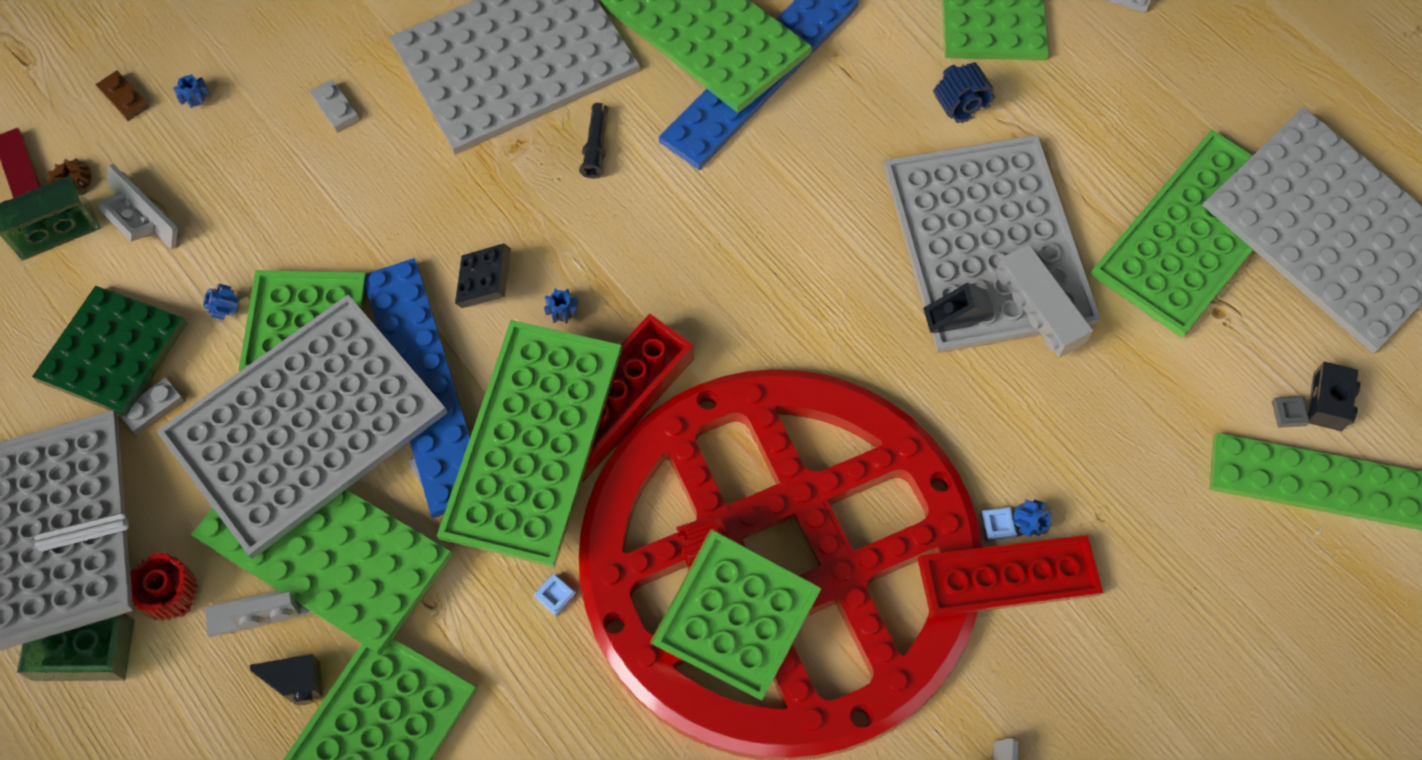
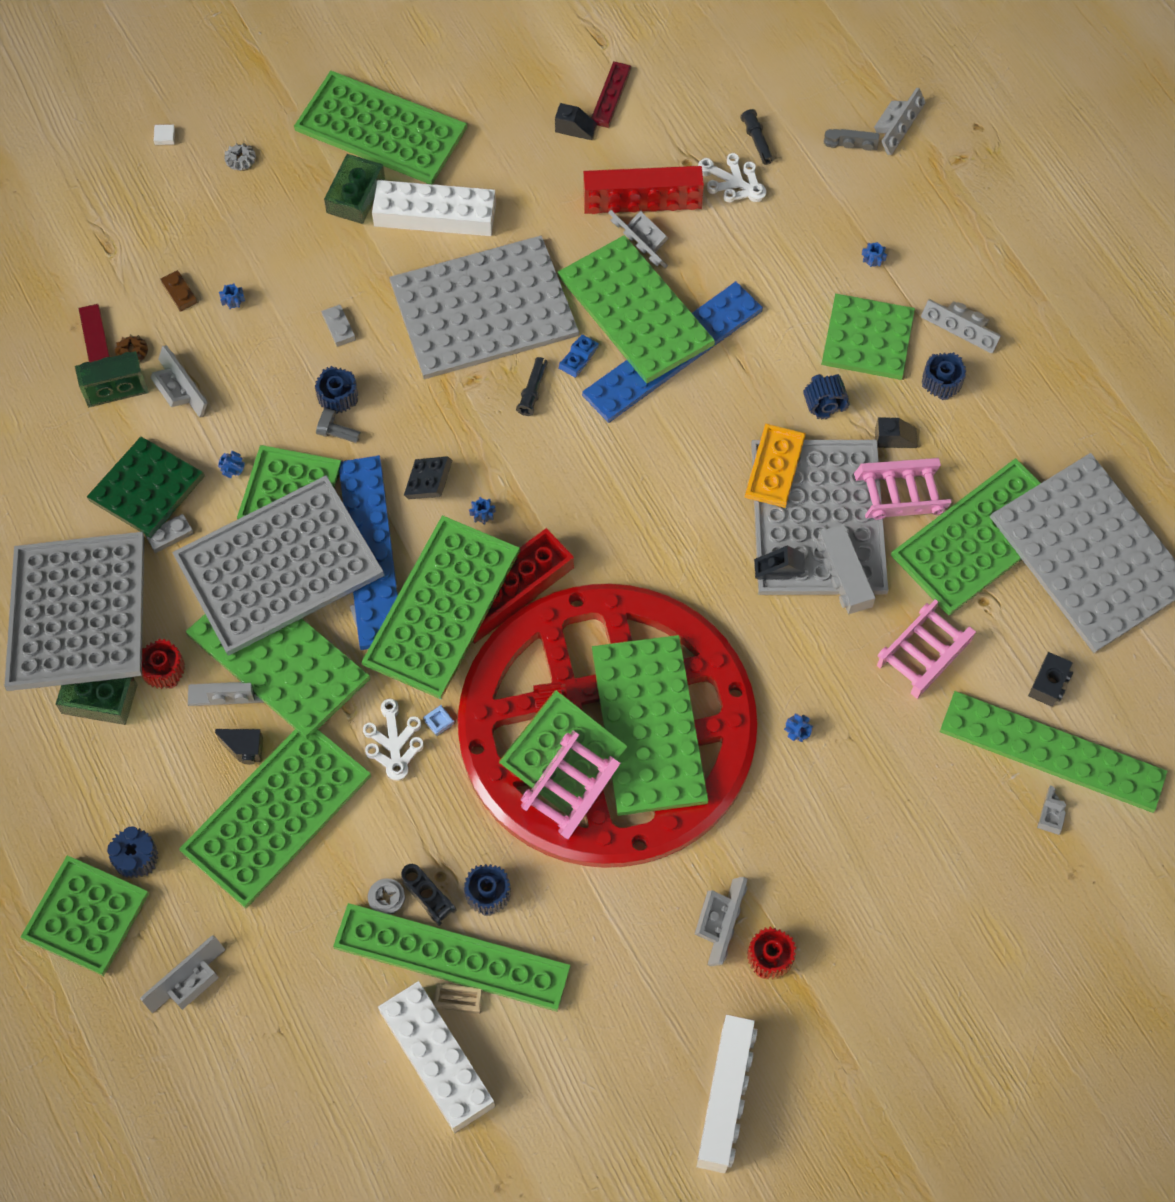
camera: 10 degrees right, 0 degrees up
(81, 532) = (113, 614): light grey axle -> none
(340, 233) = (327, 427): none -> dark grey piece
(344, 184) = (336, 389): none -> dark blue brick
(500, 636) = (394, 742): none -> white plant
(645, 94) = (579, 356): none -> blue slope
(772, 681) = (579, 804): none -> bright pink fence
(839, 535) = (651, 712): none -> bright green plate
(921, 187) = (775, 465): none -> light orange tile
(998, 524) = (773, 728): light blue tile -> none
(1009, 575) = (770, 765): red plate -> none
(1056, 124) = (895, 433): none -> black slope
(1088, 165) = (907, 470): none -> bright pink fence
(1099, 44) = (944, 375): none -> dark blue brick
(1182, 407) = (934, 668): none -> bright pink fence
(1290, 412) = (1016, 685): dark grey tile -> none
(1383, 570) = (1052, 813): none -> light grey slope

